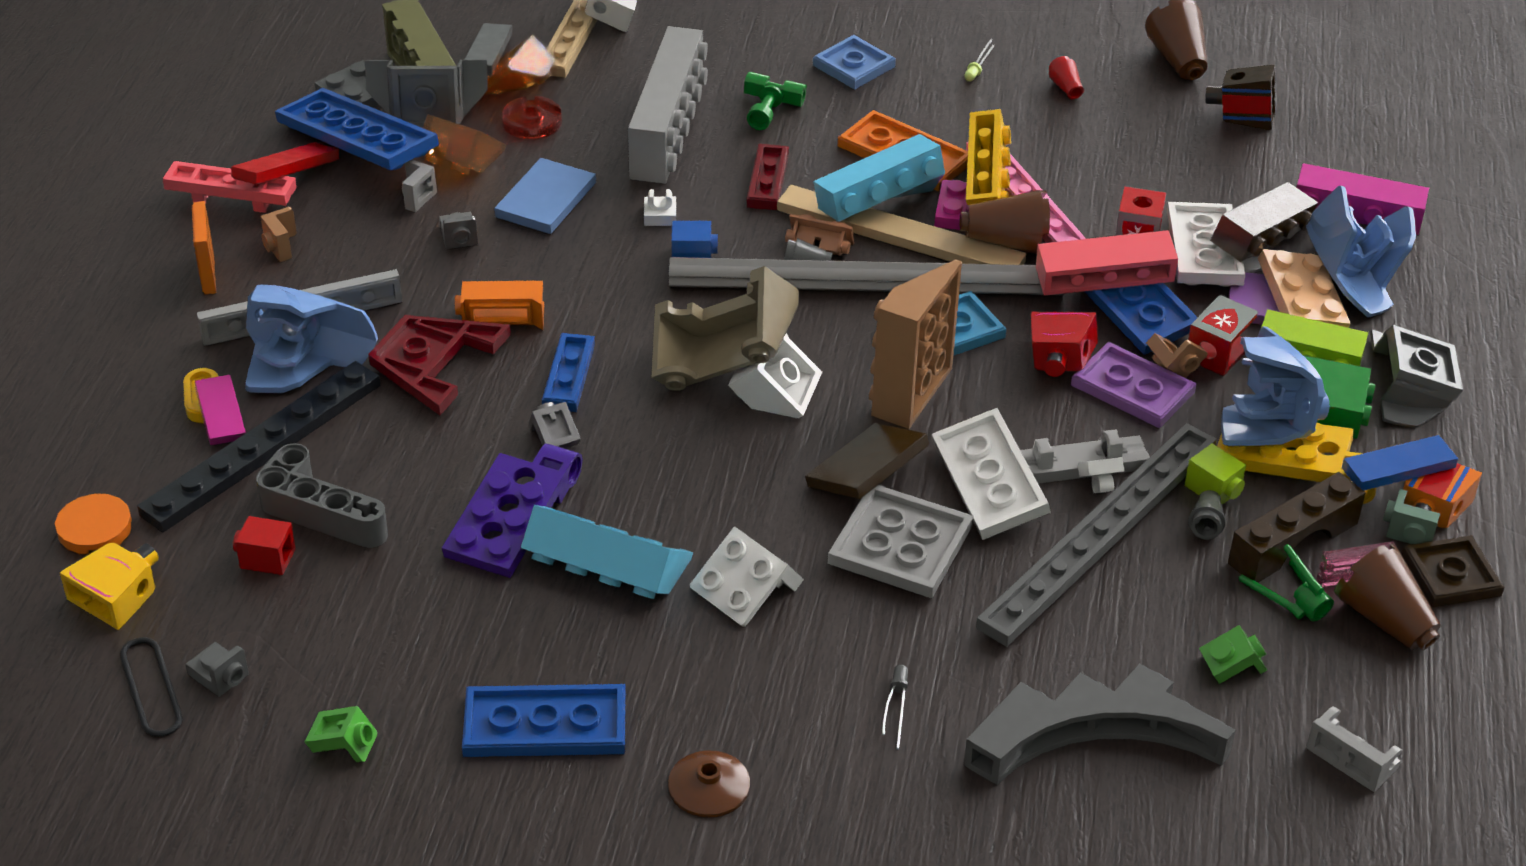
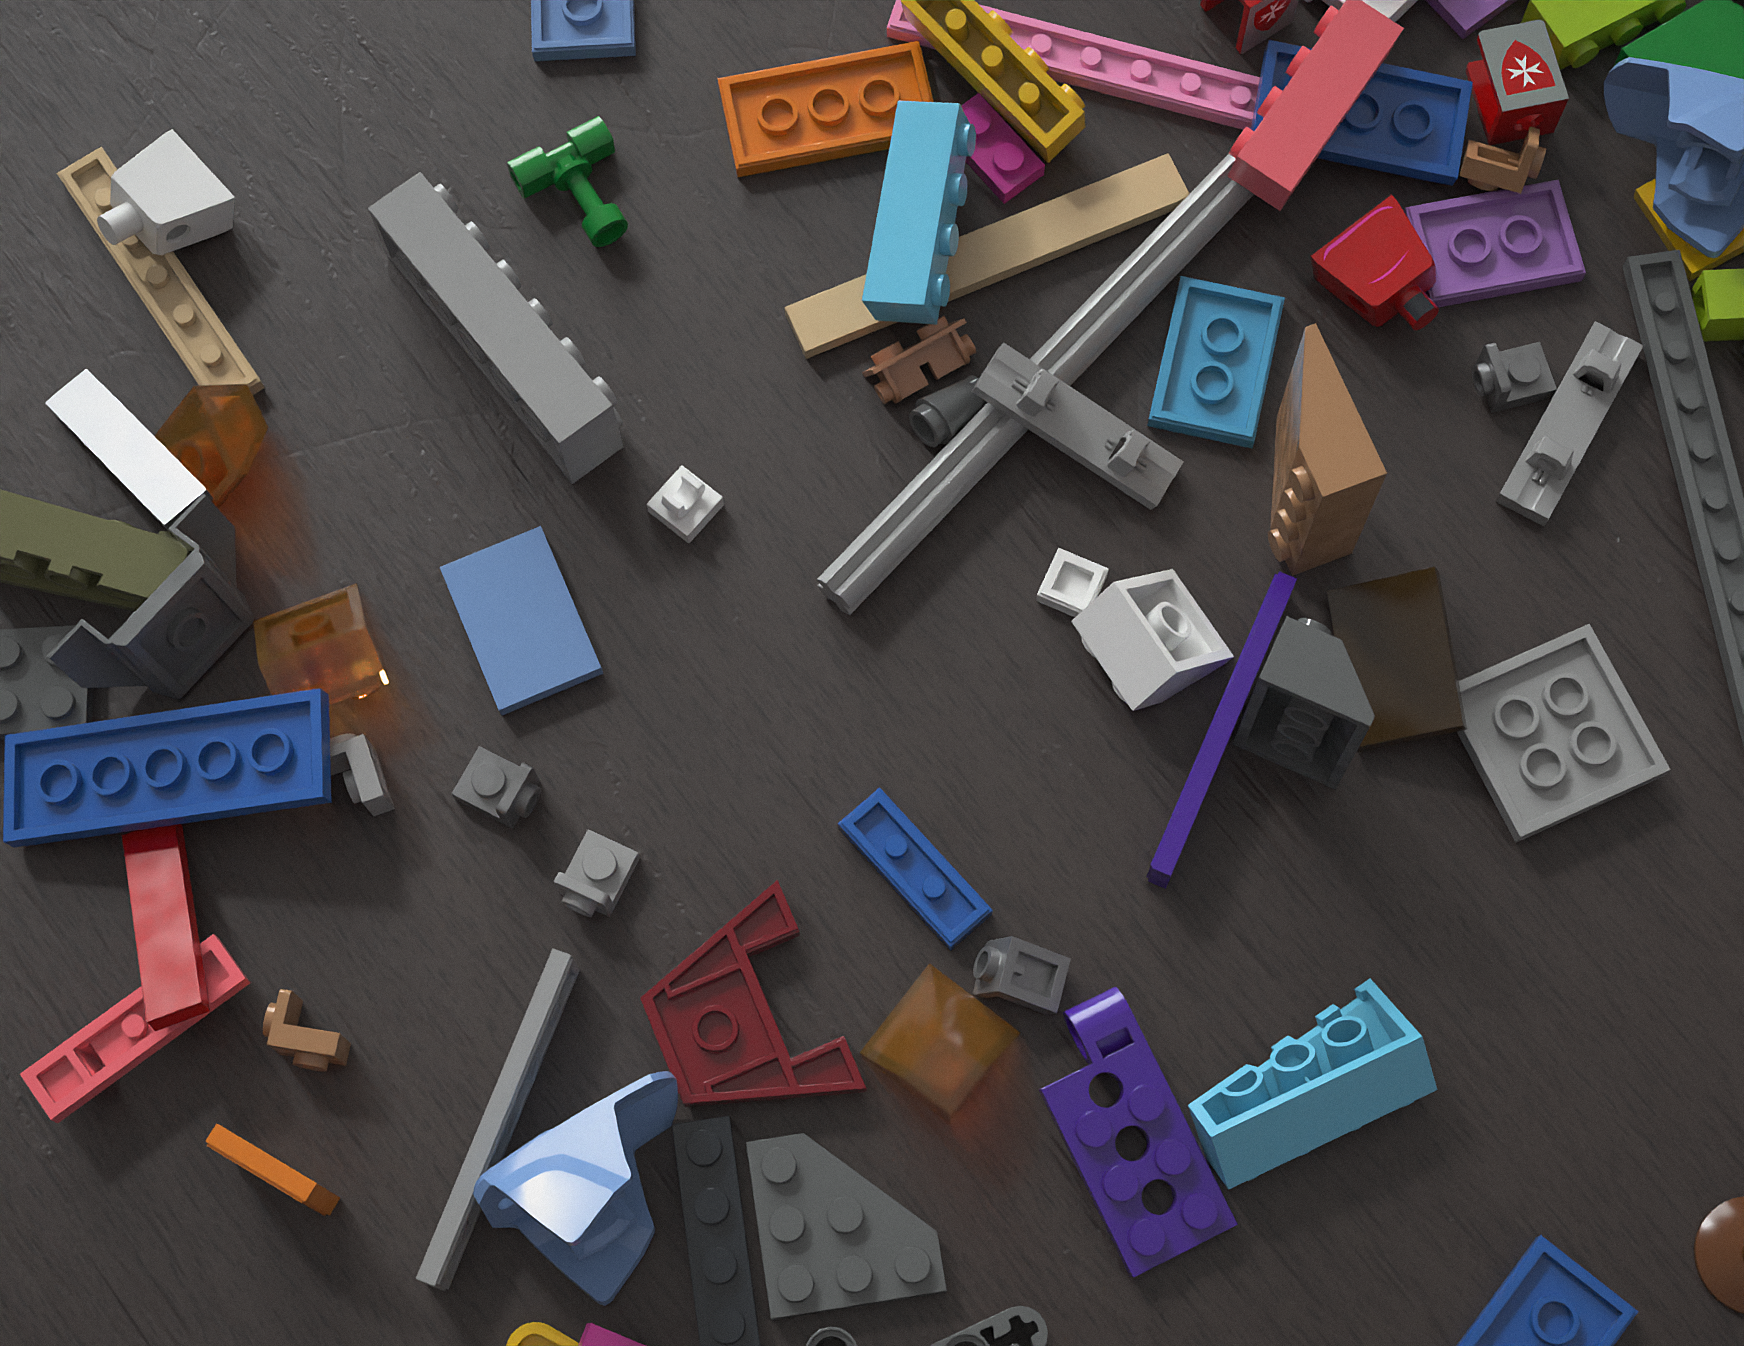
camera: 45 degrees left, 30 degrees up
(357, 443) = (833, 1234): none -> dark grey plate
(447, 279) = (596, 875): none -> light grey bracket
(489, 427) = (940, 1043): none -> clear orange slope
(502, 302) = (721, 856): orange window -> none
(531, 117) = (325, 504): clear red tile -> none
(693, 239) = (804, 525): blue brick -> none
(723, 337) = (1069, 653): dark tan windscreen -> none
(742, 577) = (1477, 959): white bracket -> none
(756, 423) = (1220, 730): none -> dark purple tile
(767, 176) = (732, 316): dark red tile -> none
(787, 402) = (1307, 705): none -> dark grey slope
(847, 291) = (1077, 426): none -> light grey hinge
(990, 473) = (1533, 542): white plate -> none
(1009, 221) = (1127, 127): reddish brown cone -> none
(1069, 425) = (1513, 376): none -> flat silver bracket
(1101, 472) = (1631, 419): white tile -> none

